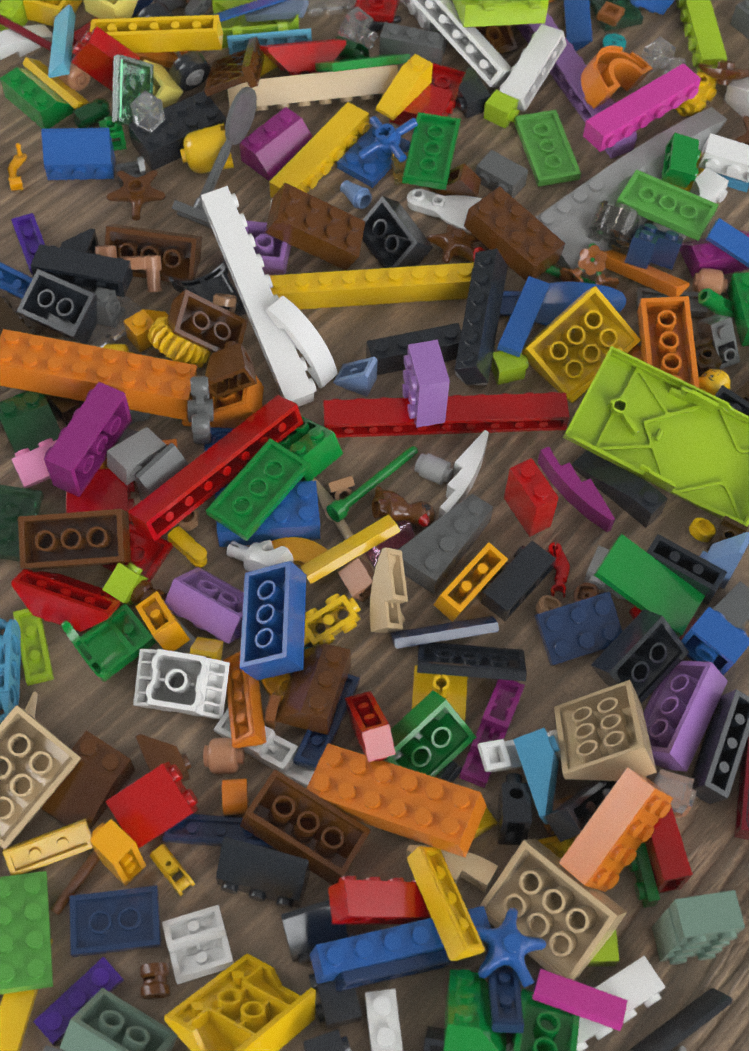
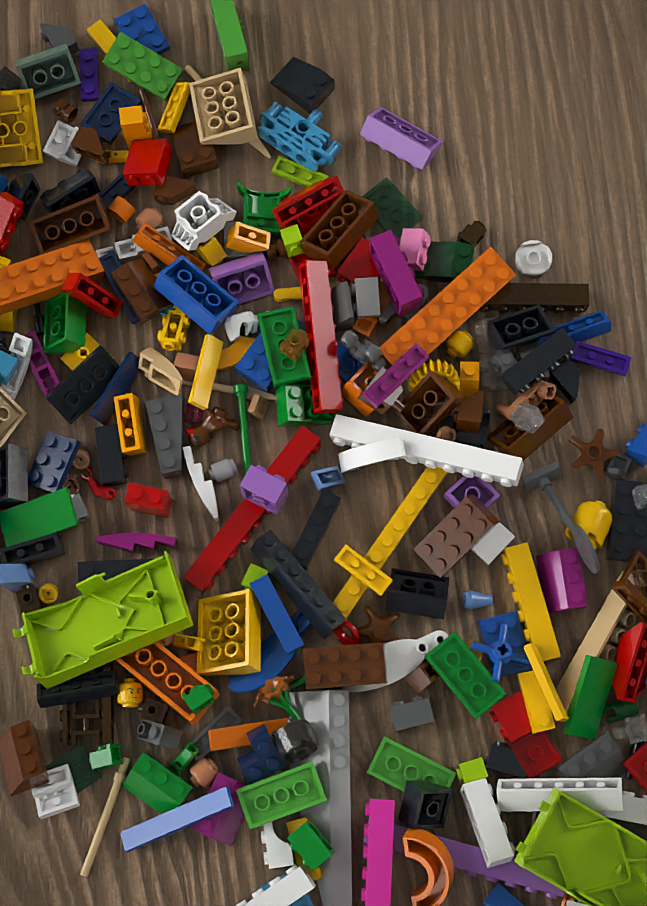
camera: 135 degrees right, 15 degrees up
(149, 240) = (527, 417): none -> clear brick
(179, 897) = (89, 144): none -> reddish brown slope
(185, 282) = (469, 413): none -> reddish brown slope
(205, 356) = (395, 375): none -> magenta tile
(249, 468) = (294, 350): none -> clear orange brick
(382, 88) = (545, 682): none -> yellow tile
(418, 272) = (363, 570): none -> yellow tile
(564, 114) = (424, 805): none -> black slope
(664, 296) = (199, 697): none -> green brick

